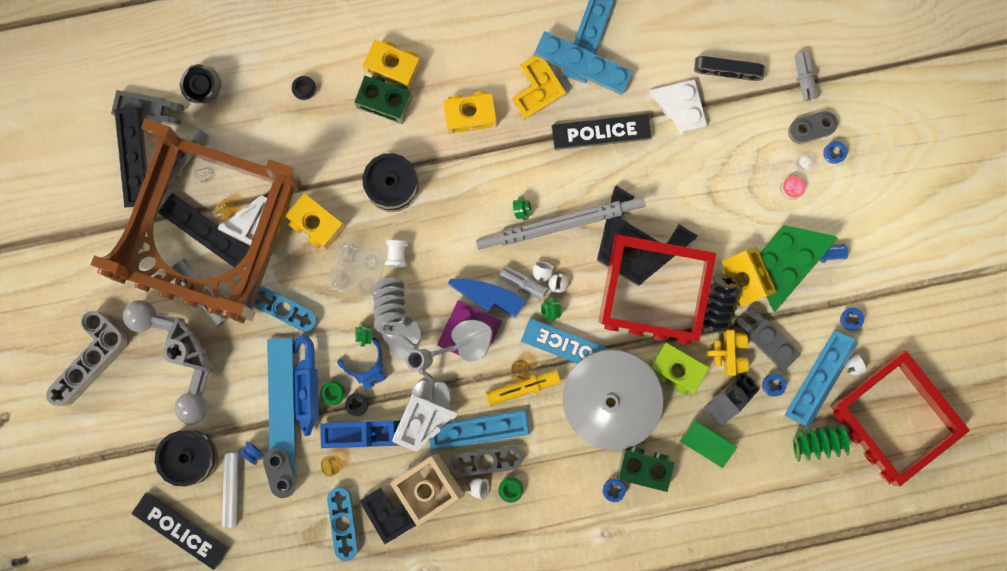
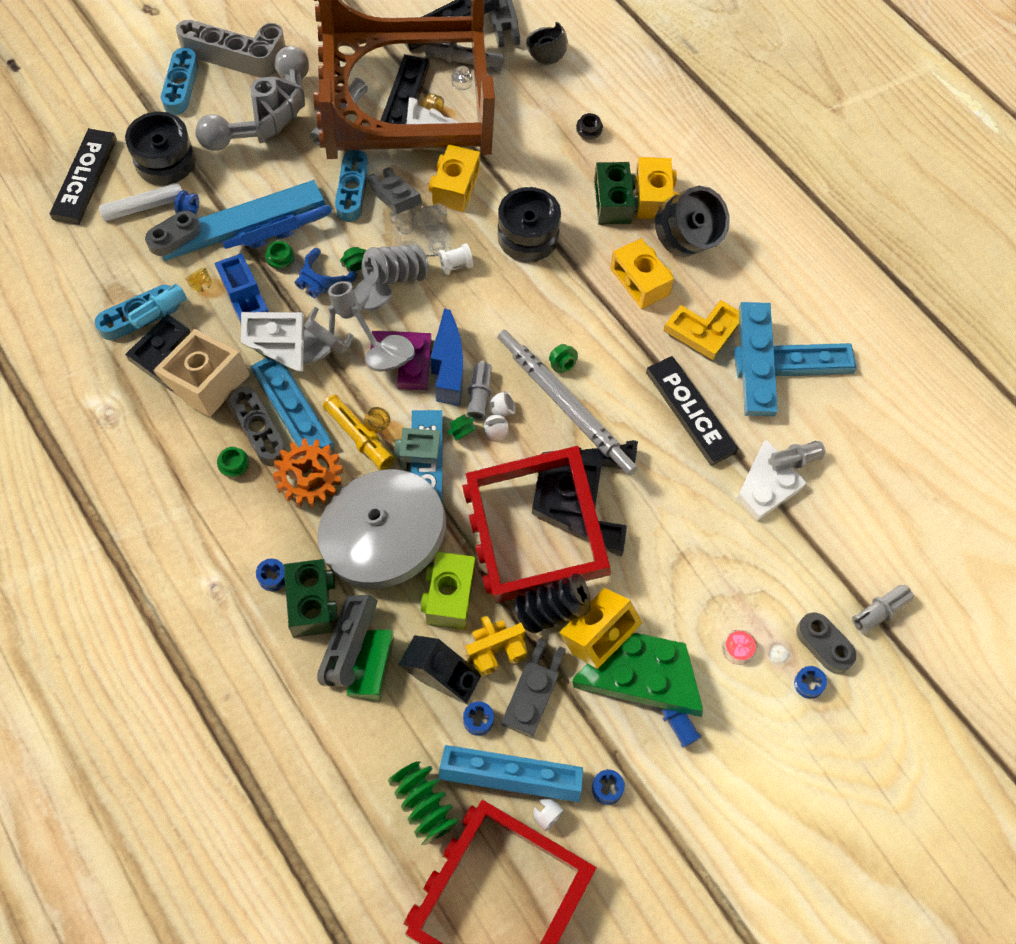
camera: 65 degrees right, 20 degrees down
(93, 404) = (188, 58): none -> dark azure beam
(314, 278) = (394, 191): none -> dark grey hinge
(349, 401) = (277, 274): black bush -> none
(353, 507) = (157, 306): none -> medium azure axle
(434, 385) = (326, 336): none -> light grey piece
(446, 53) = (692, 221): none -> black wheel
(479, 488) = (217, 431): white hinge -> none
(553, 428) = (319, 477): none -> orange gear
(558, 348) = (417, 446): none -> sand green bracket
(673, 75) = (797, 455): none -> light grey axle
(687, 454) = (346, 641): none -> dark grey plate
(729, 68) = (841, 516): black beam -> none

